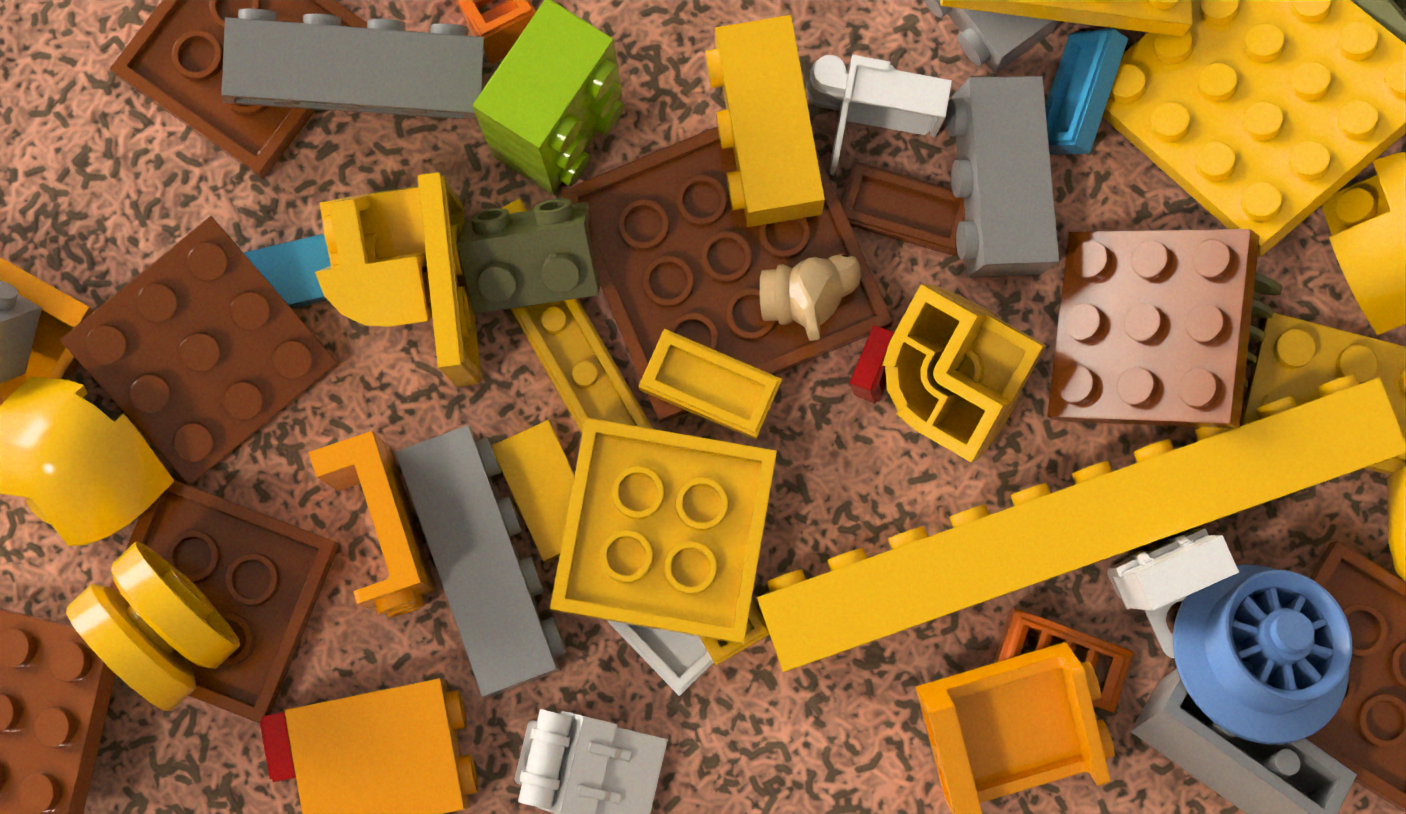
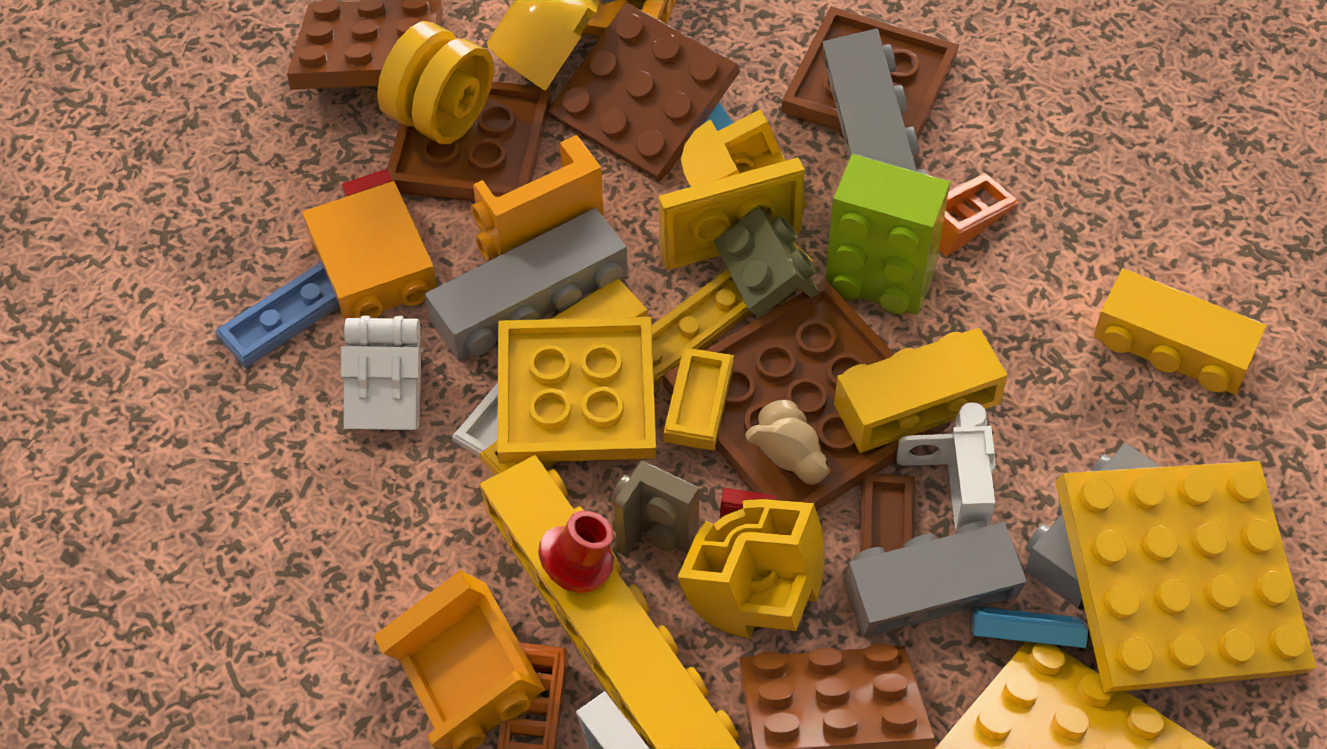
camera: 75 degrees right, 25 degrees down
(867, 461) = (656, 505): none -> dark tan bracket
(928, 572) = (578, 553): none -> red piece

